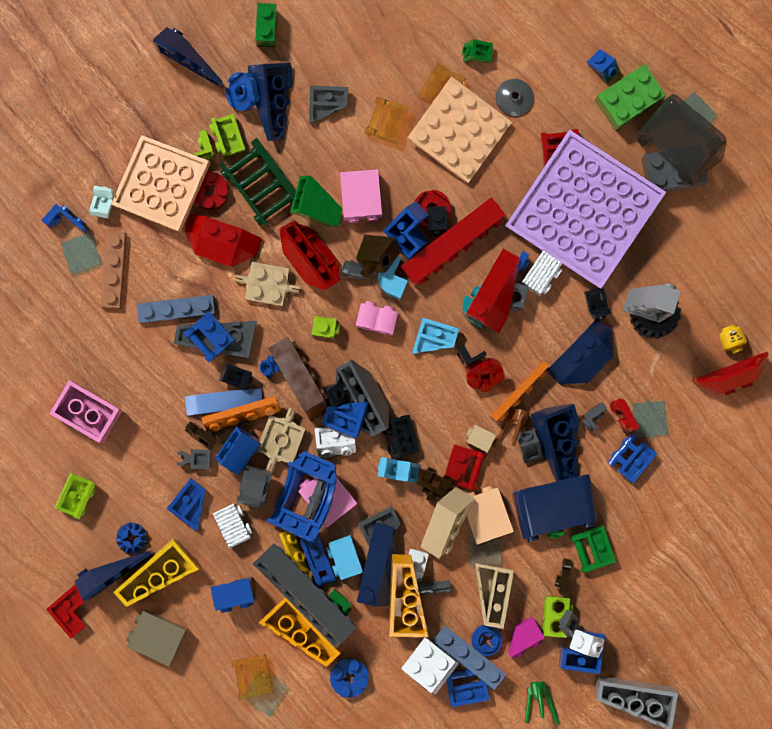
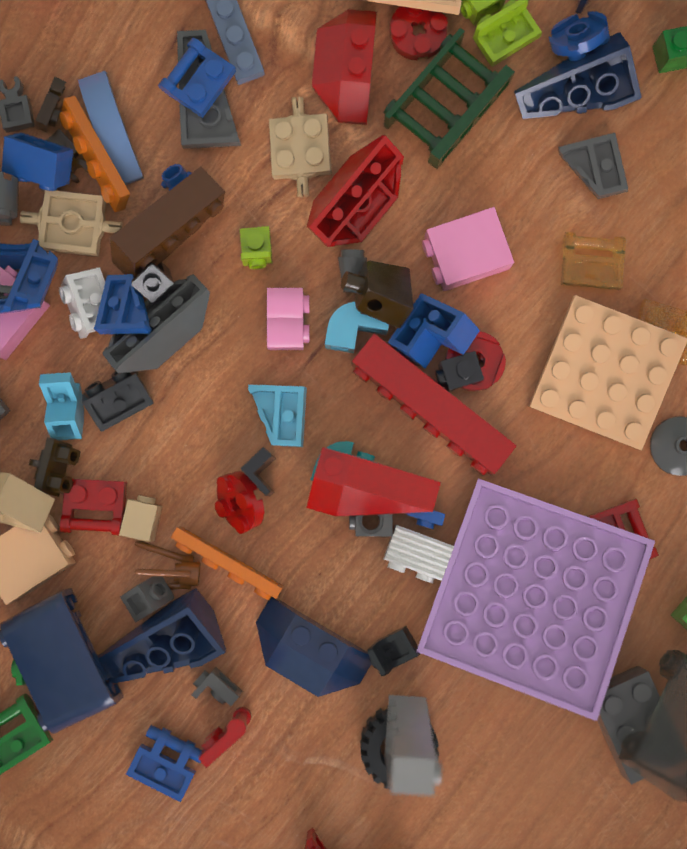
camera: 80 degrees right, 0 degrees up
(236, 376) = (149, 133): black bracket -> none
(315, 203) = (436, 182): green slope -> none
(650, 418) = (236, 776): clear light blue piece -> none

